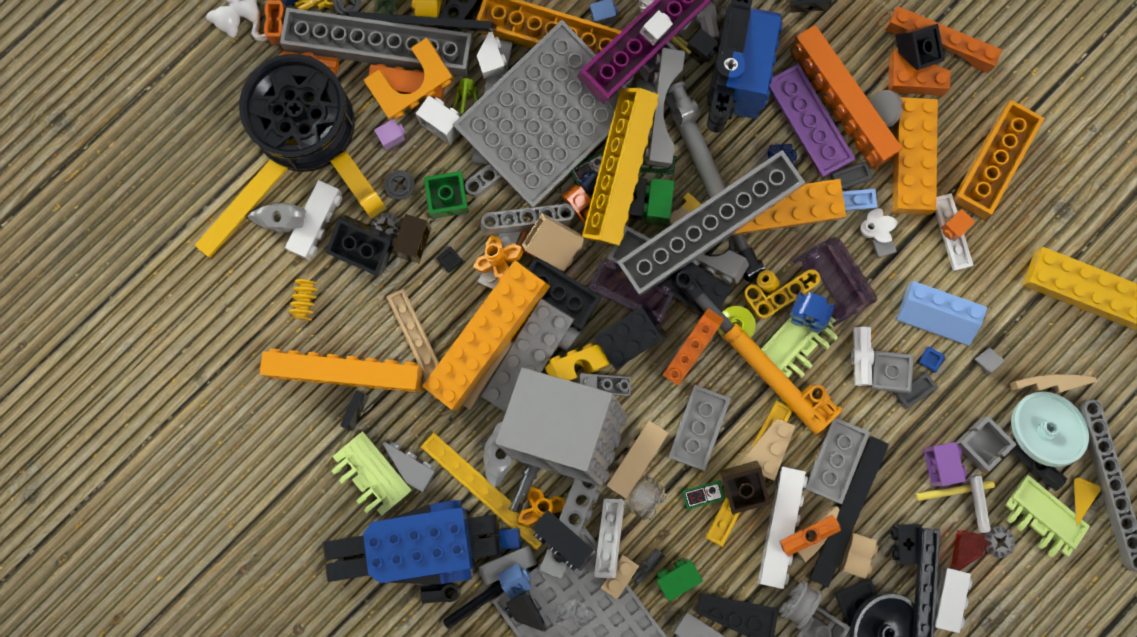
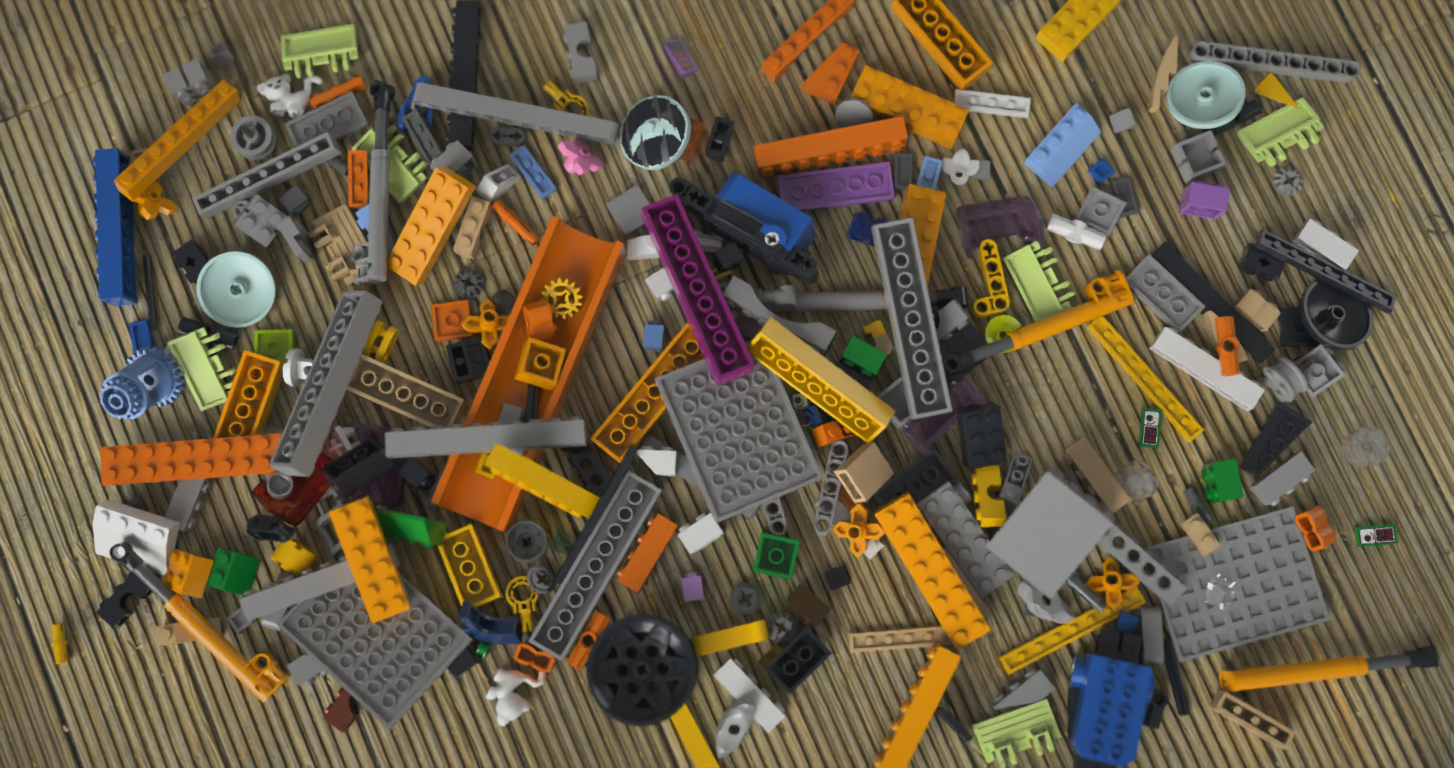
camera: 65 degrees left, 0 degrees up
(303, 299) = (825, 734): yellow piece -> none
(435, 76) = (667, 570): light orange arch -> none
(465, 89) = (676, 497): lime plant -> none
(515, 580) = (1171, 632): medium blue brick -> none
(525, 611) = (1203, 634): black slope -> none
(562, 541) = (1157, 572): black brick -> none
(609, 538) = (1161, 530): white plate -> none
(656, 27) = (705, 292): white brick -> none
(693, 346) = (1014, 381): orange brick -> none
(699, 428) = (1087, 406): light grey plate -> none
(745, 487) = (1161, 387): dark brown brick -> none
(768, 281) = (980, 283): yellow brick -> none
(771, 448) = (1134, 352): tan wing -> none
(811, 312) = (1023, 260): blue brick -> none
(921, 46) = (810, 58): black slope -> none
(951, 491) = (1230, 184): light yellow bar -> none
(957, 225) = (990, 97): orange brick -> none
(967, 549) = (1285, 212): clear red slope -> none
(980, 503) = (1248, 183): white axle -> none

